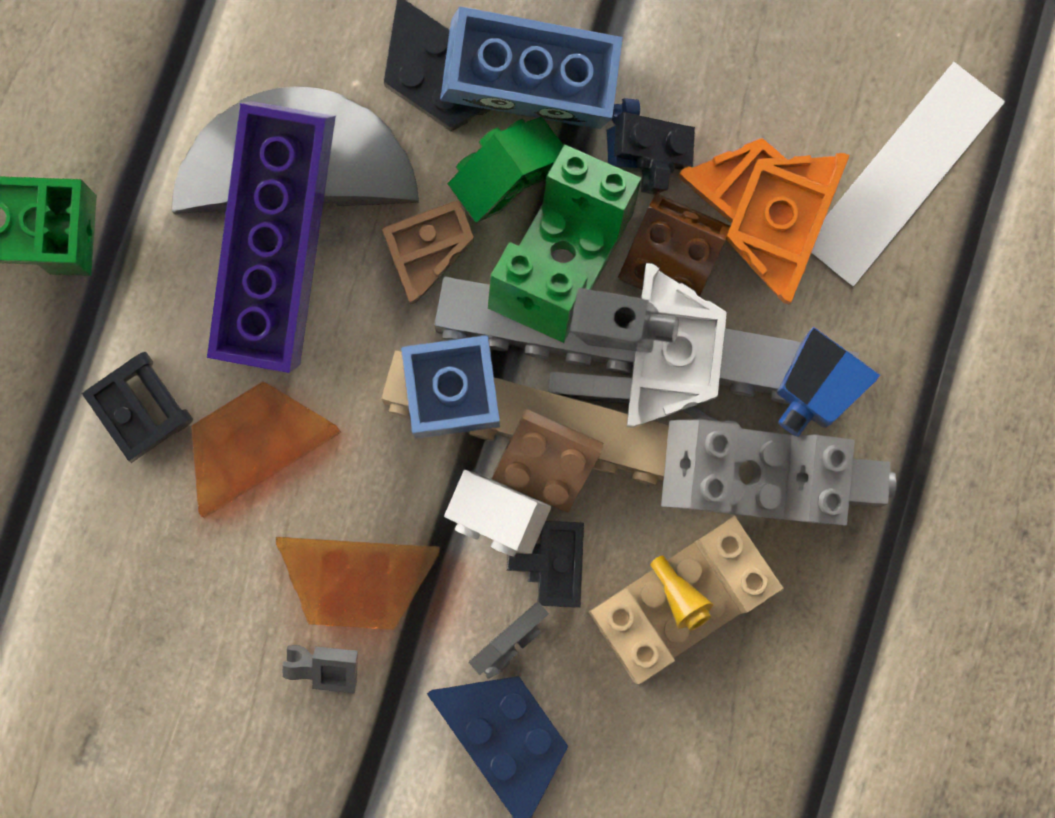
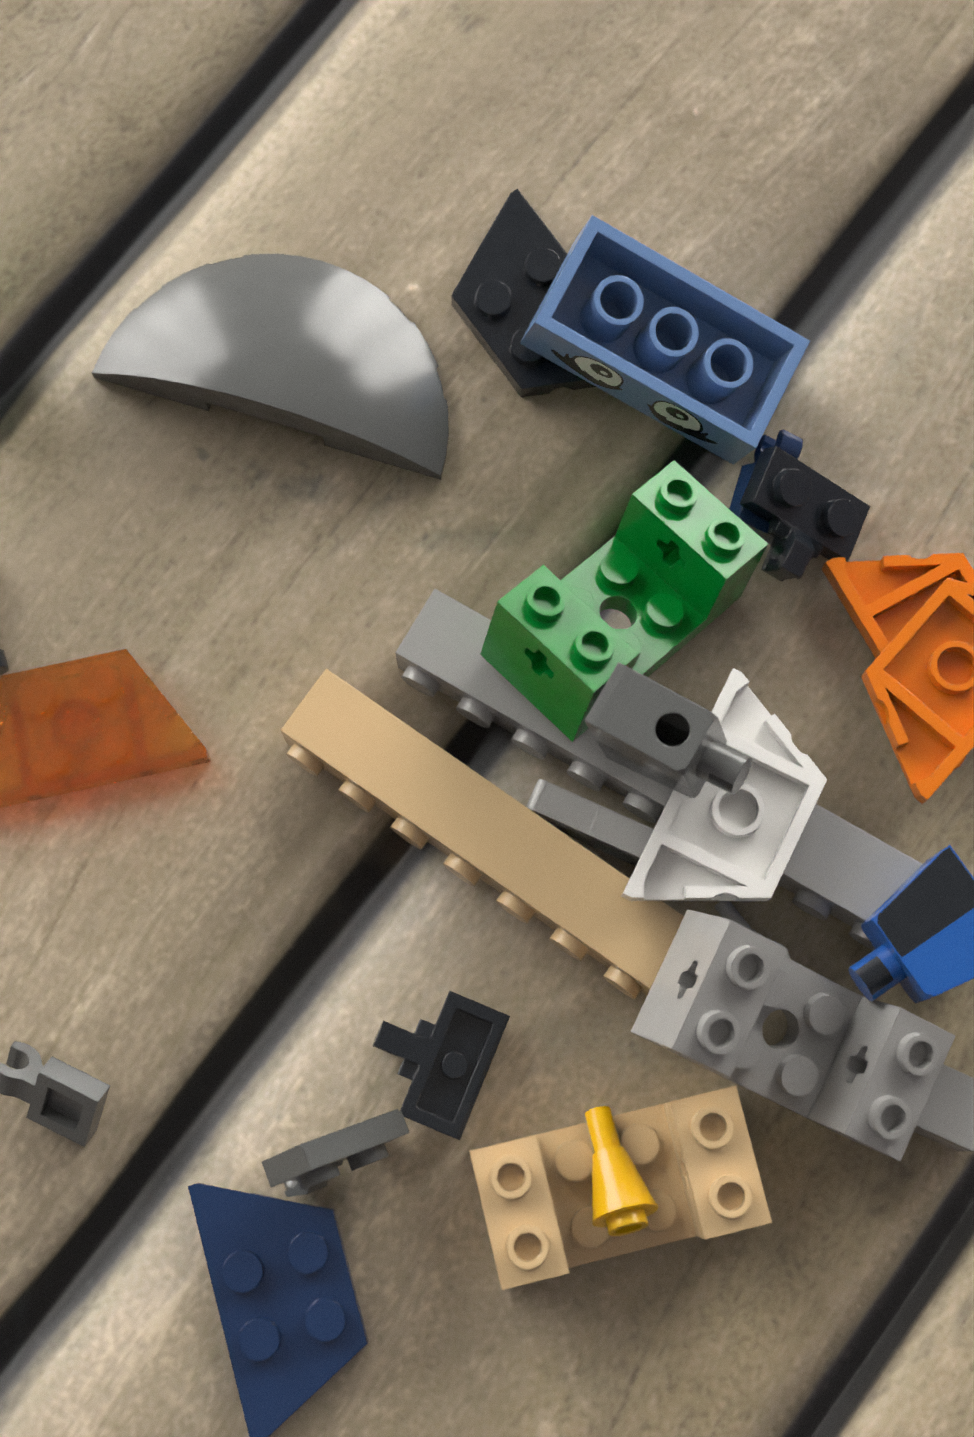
camera: 20 degrees right, 5 degrees down
(270, 236) = (207, 444): dark purple brick -> none
(355, 580) = (148, 981): clear orange wing -> none
(427, 246) = (429, 542): medium nougat wing -> none
(450, 387) = (382, 745): medium blue brick -> none
(497, 513) = (387, 955): white brick -> none
(505, 166) = (577, 465): green brick -> none
(547, 460) = (488, 905): medium nougat plate -> none
(677, 242) = (789, 656): reddish brown bracket -> none

